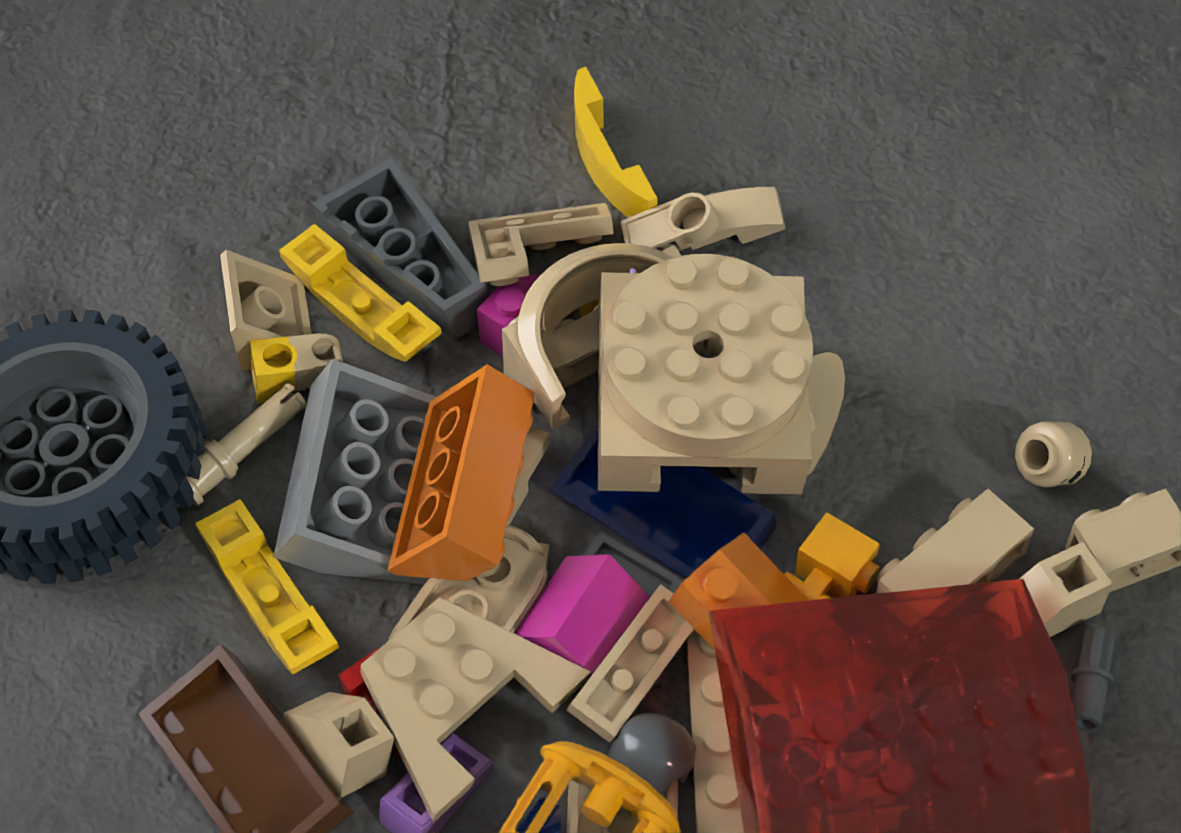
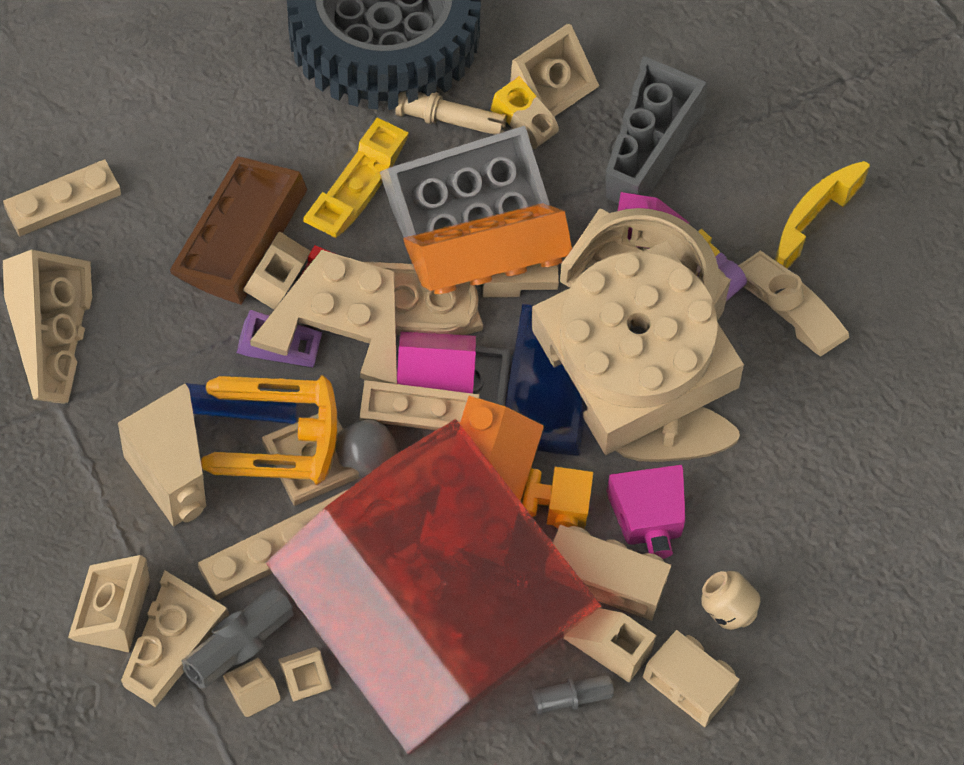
camera: 55 degrees right, 5 degrees up
(355, 298) = (601, 122): yellow slope -> none
(501, 240) = (697, 180): tan plate -> none
(892, 481) = (649, 506): none -> dark pink torso

